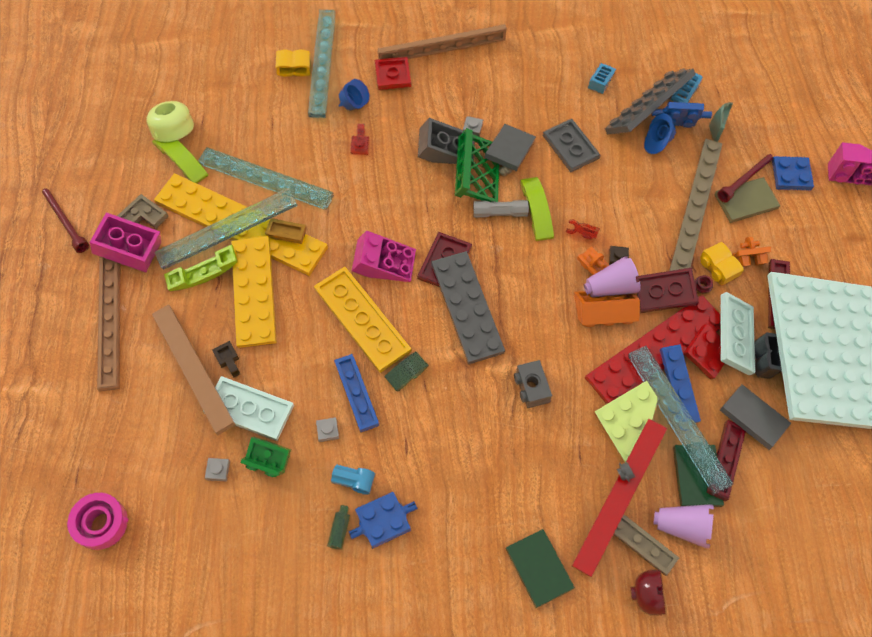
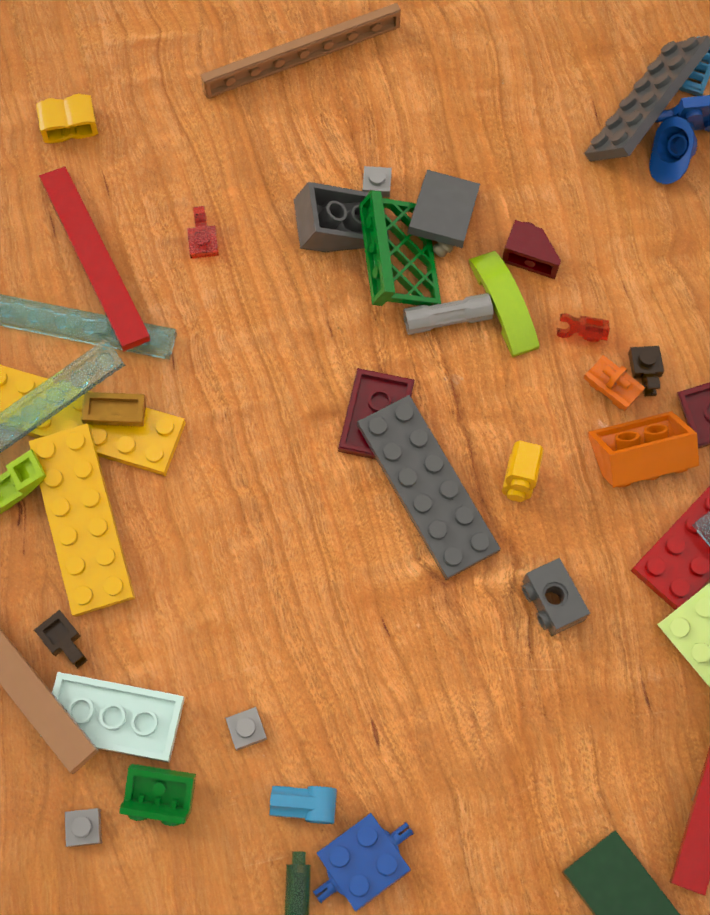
camera: 10 degrees left, 5 degrees up
(293, 145) = (95, 259): none -> red tile
(322, 64) = (114, 113): clear light blue plate -> none
(354, 95) = (177, 159): blue piece -> none
(356, 393) = (280, 660): blue plate -> none
(362, 319) = (265, 535): yellow plate -> none
(383, 258) = (278, 428): dark pink slope -> none
(392, 73) = (232, 111): red plate -> none
(406, 370) = (352, 609): clear green slope -> none
(527, 305) = (522, 471): none -> yellow brick
(559, 179) = (531, 250): none -> dark red slope
(571, 145) = (537, 188): dark grey tile -> none
(597, 85) = (559, 82): dark azure slope -> none
(614, 280) = (651, 406): lavender cone -> none

